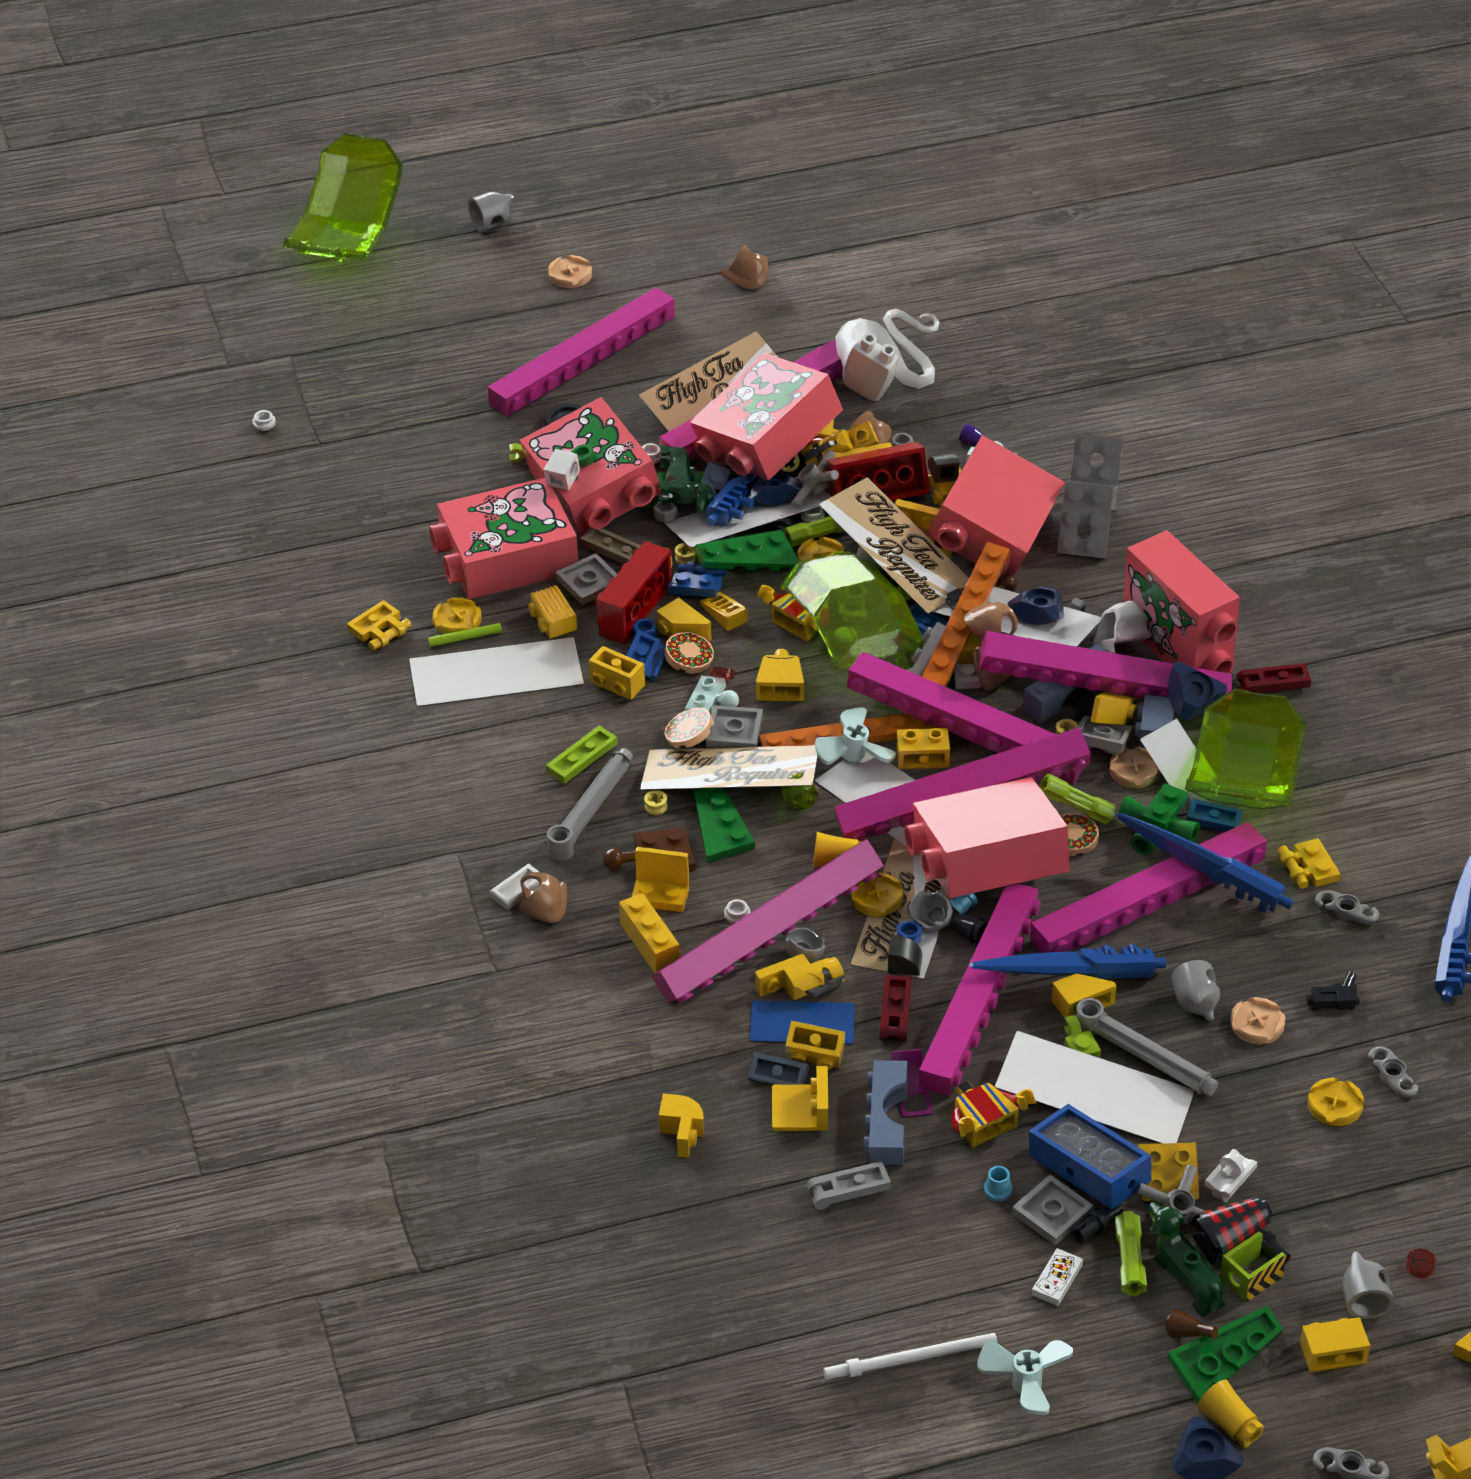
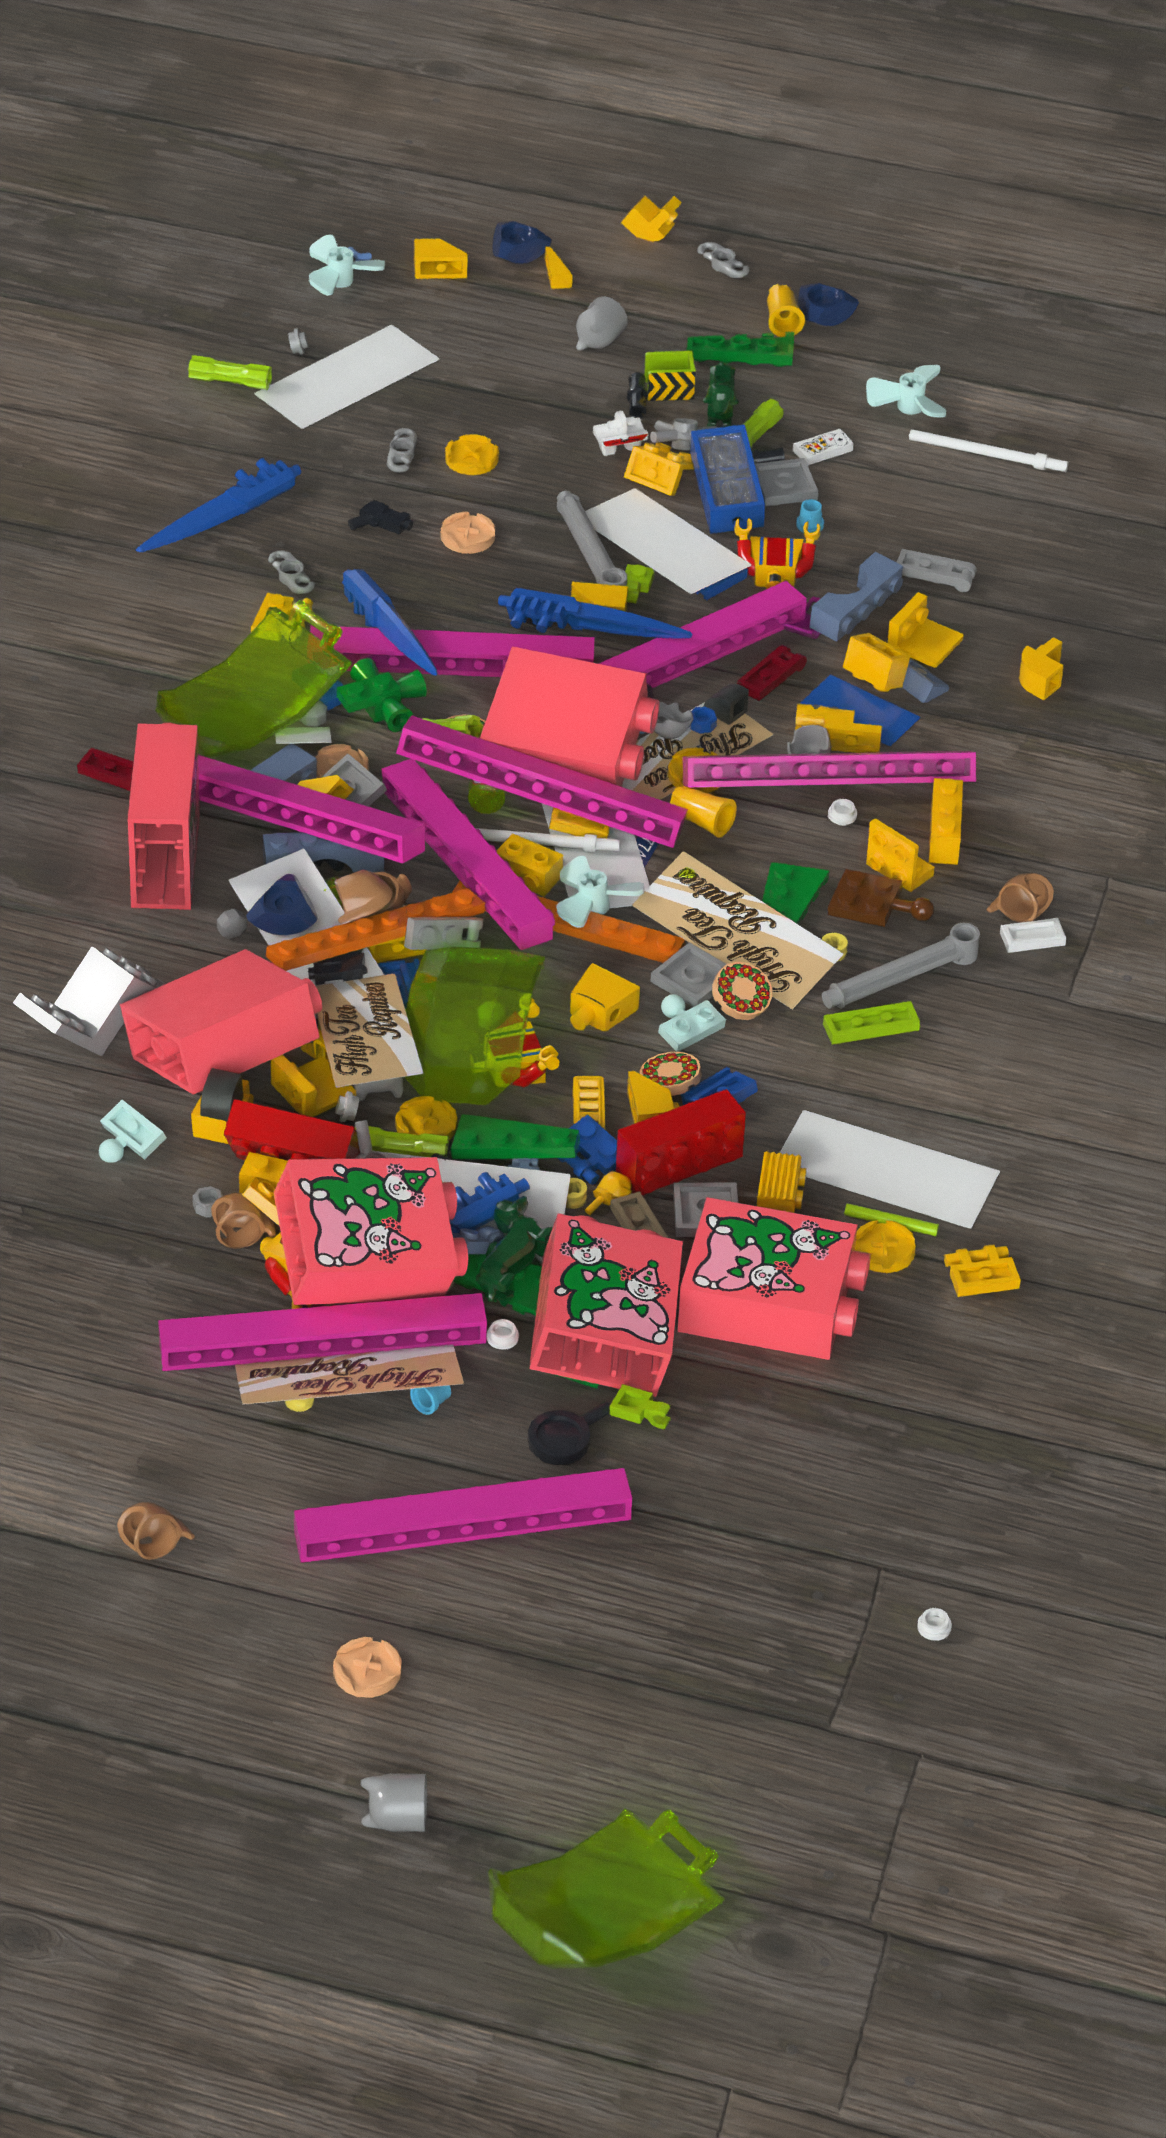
camera: 150 degrees left, 0 degrees up
(562, 469) = (666, 1259): white brick -> none
(585, 454) = (625, 1271): green tile -> none
(616, 672) = (773, 1071): yellow brick -> none
(721, 672) = (656, 1033): clear red tile -> none
(873, 358) = (169, 1288): white hips -> none
(970, 435) = (122, 1175): dark purple hose -> none
(1121, 624) = (224, 858): white piece -> none
(1184, 1326) = (762, 369): reddish brown cone -> none
(1192, 690) = (231, 750): dark blue hat -> none
(1195, 989) = (502, 557): light grey piece -> none
(1228, 1226) = (666, 389): black cone -> none
(1334, 1344) = (659, 314): yellow brick -> none
(1421, 1263) = (532, 336): clear red tile -> none

